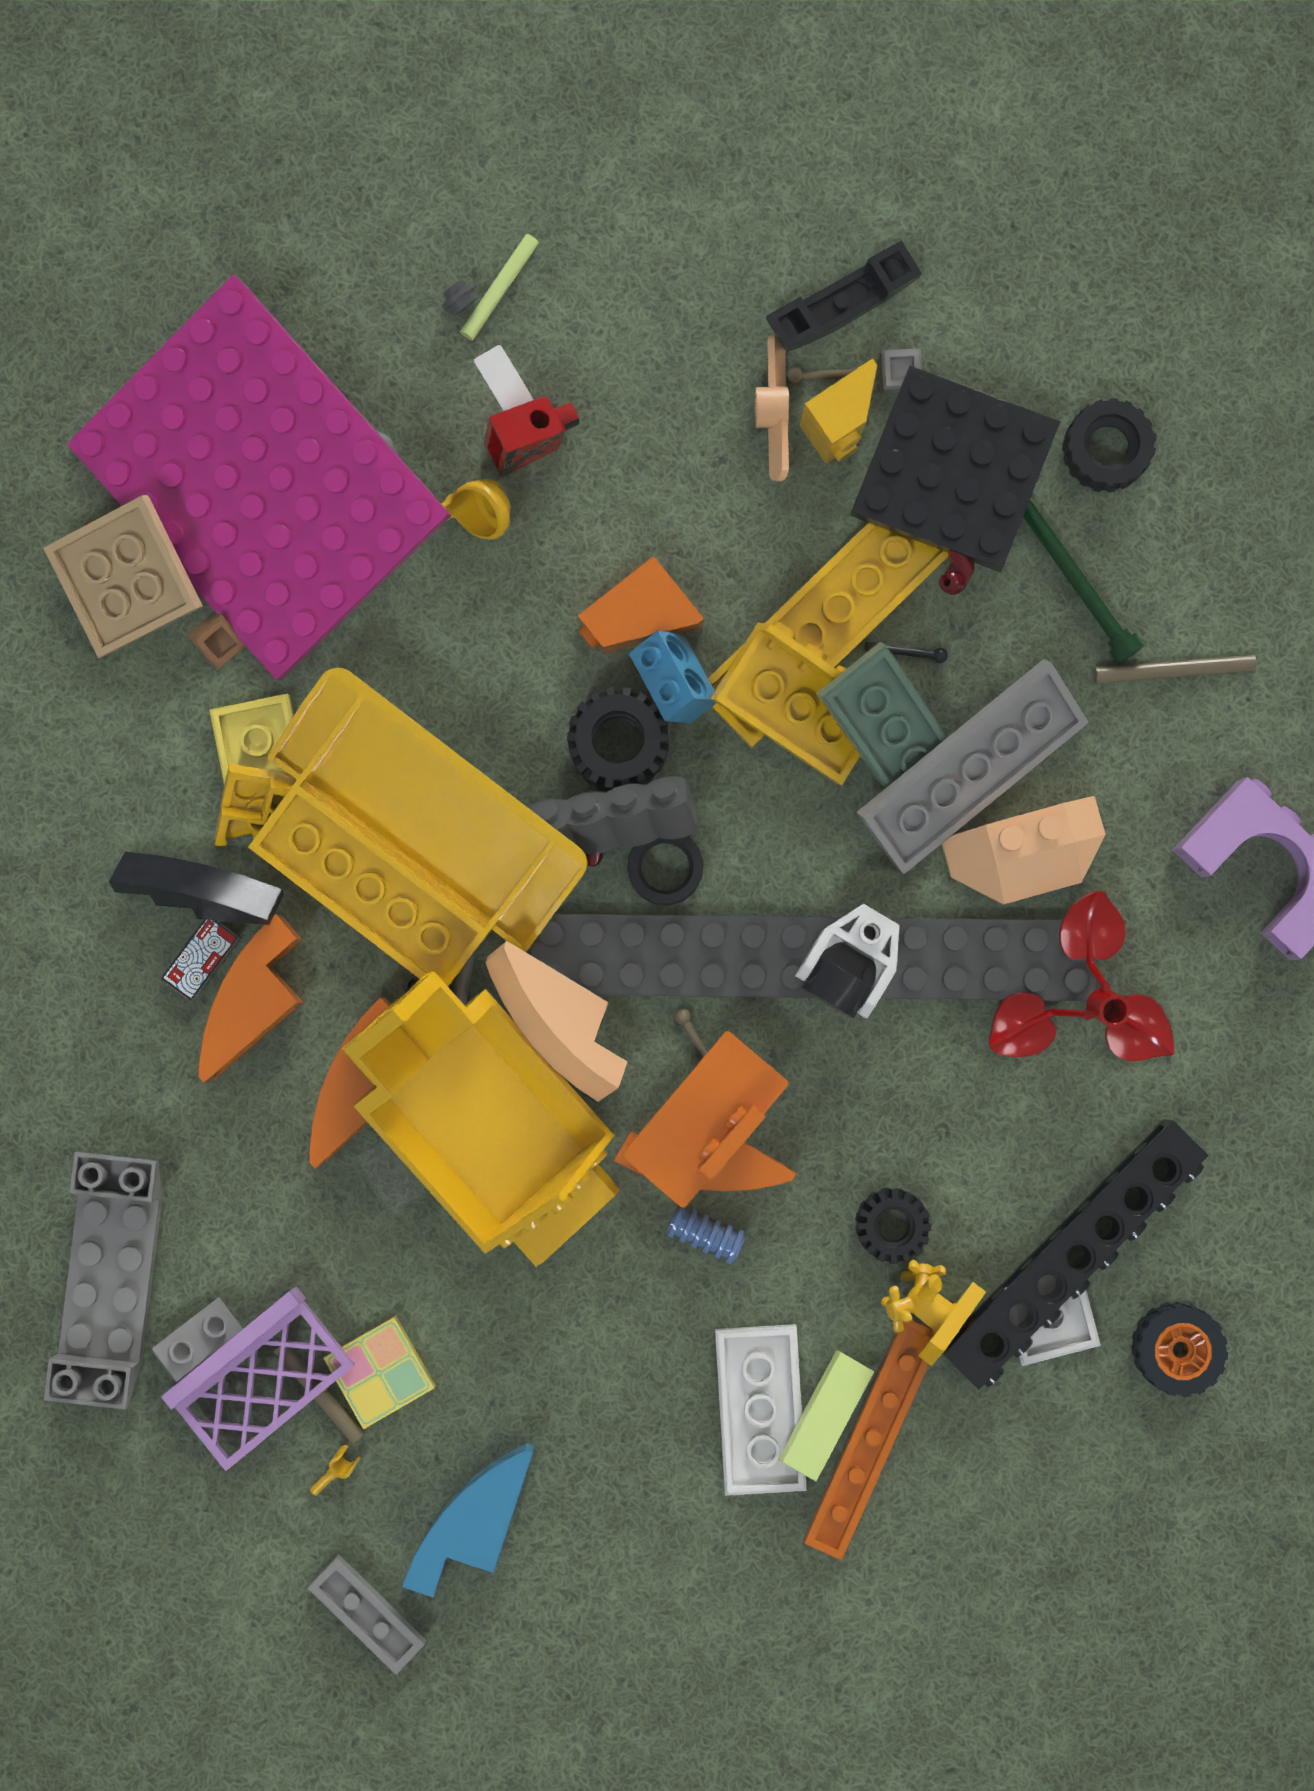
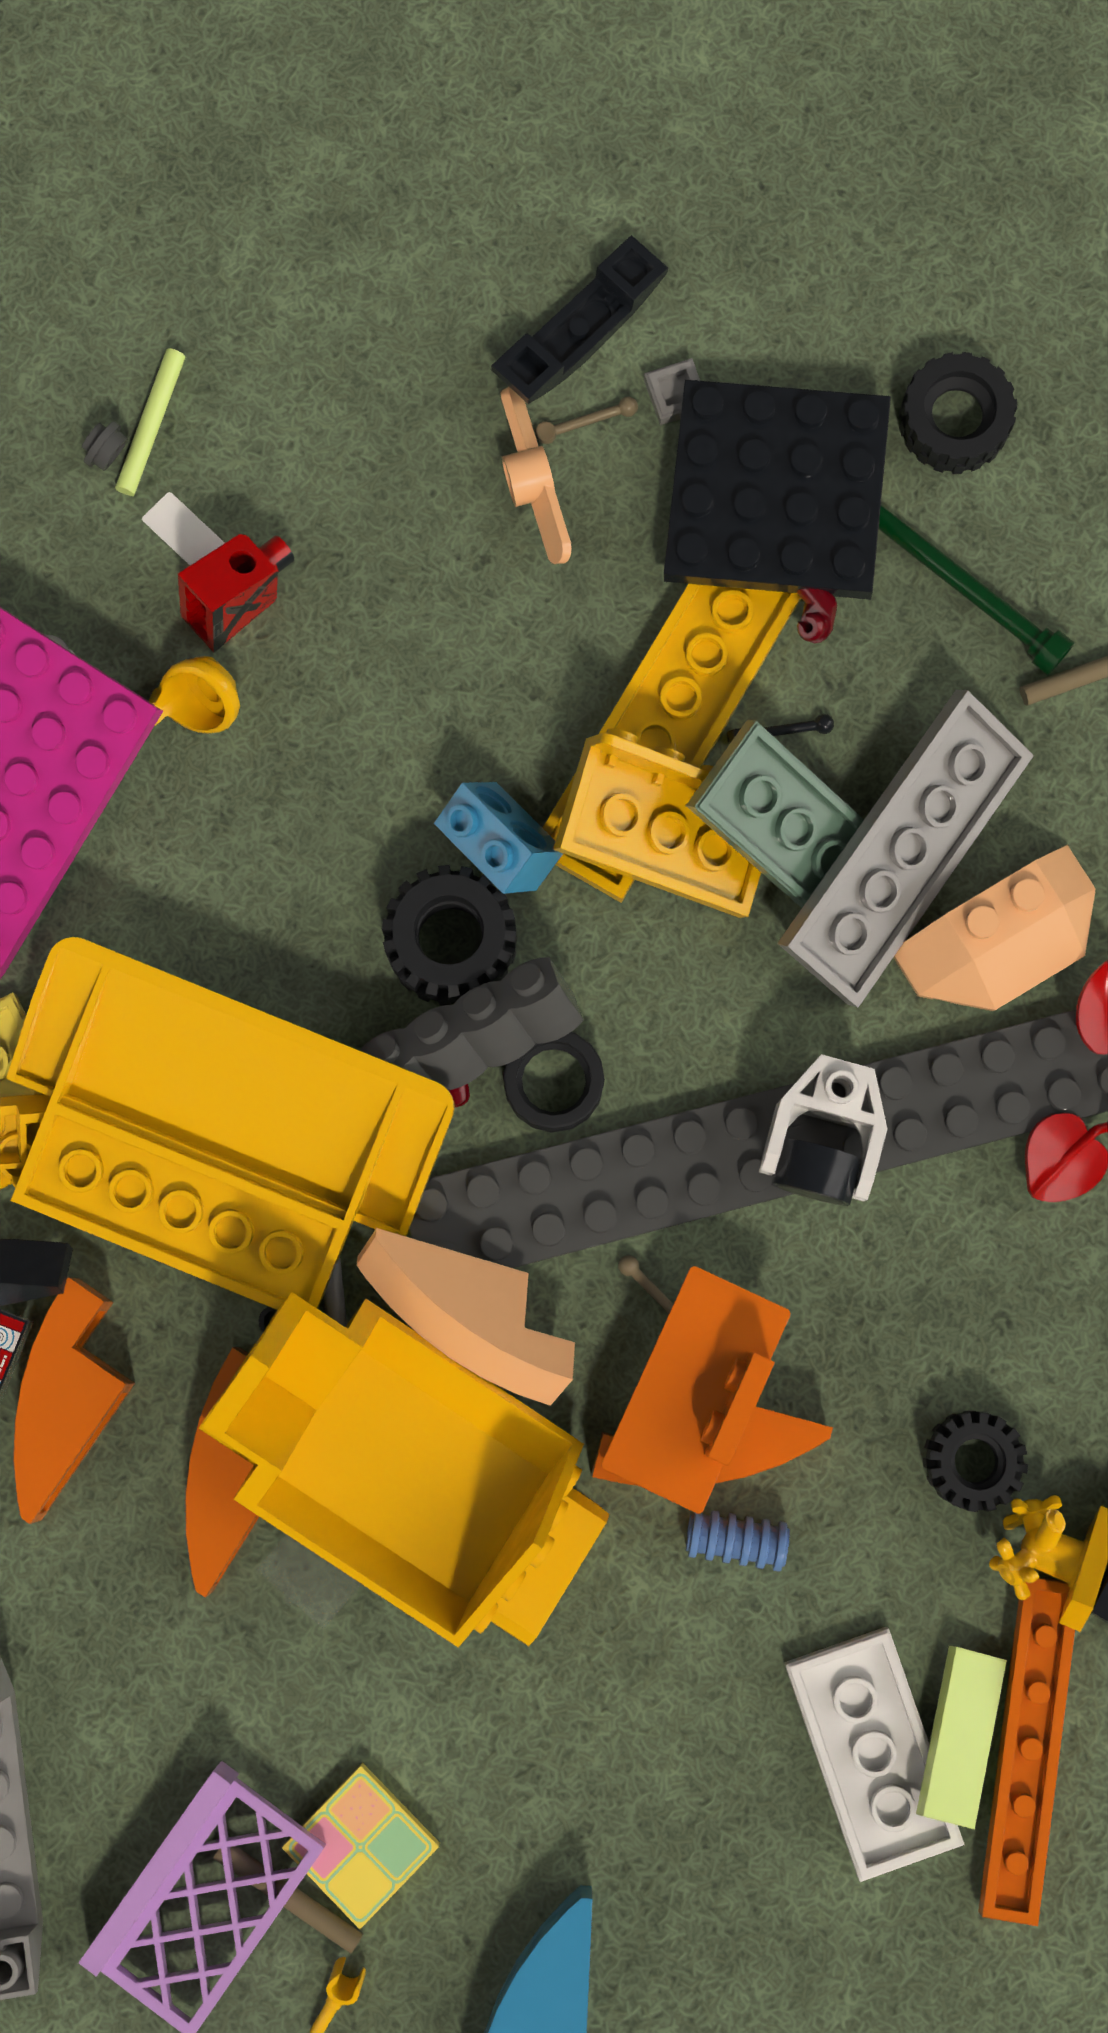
camera: 15 degrees left, 5 degrees down
(196, 1339) = (107, 1871): light grey plate -> none
(637, 609) = (428, 767): orange slope -> none
(839, 414) = (614, 459): yellow slope -> none

